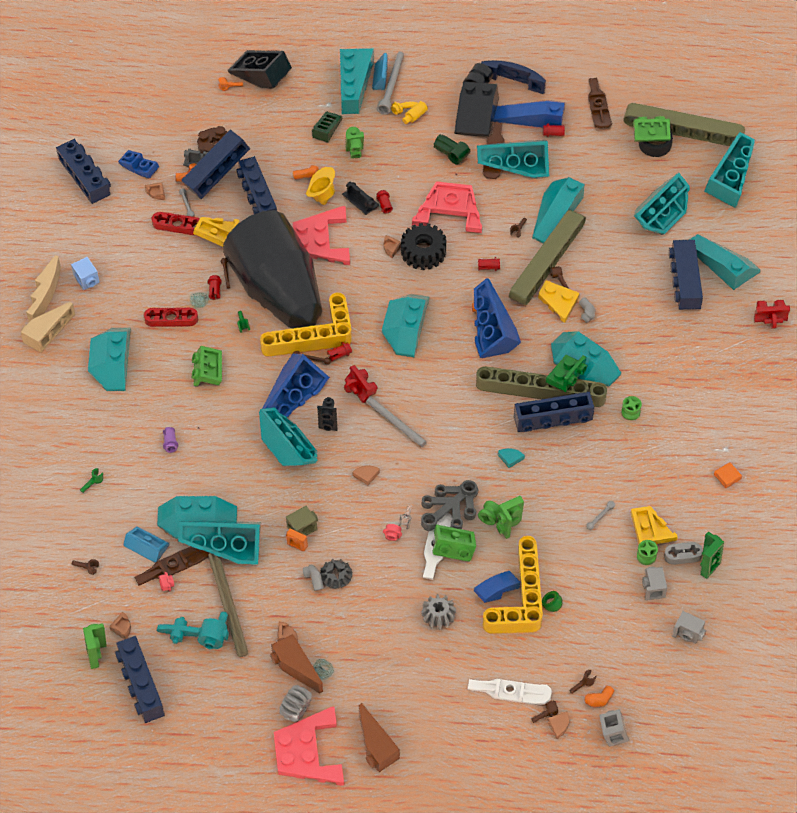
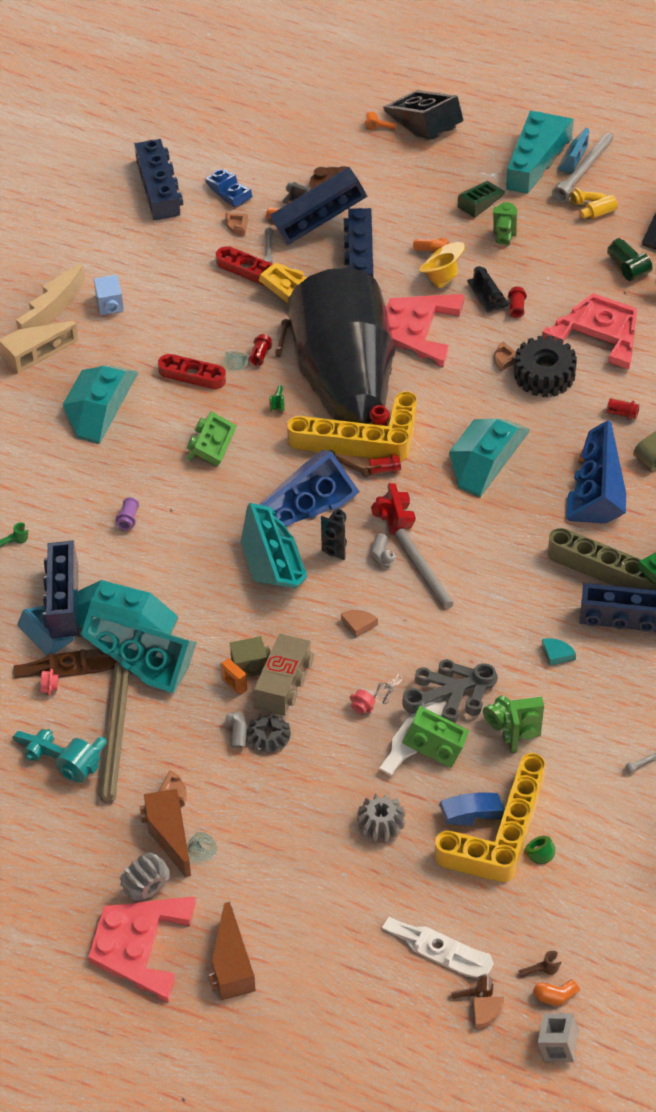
camera: 20 degrees right, 5 degrees down
(150, 511) = (61, 589): none -> dark blue brick
(323, 316) = (379, 415): none -> red pin
(331, 529) = (283, 674): none -> dark tan brick
(361, 419) = (379, 552): none -> light grey arm

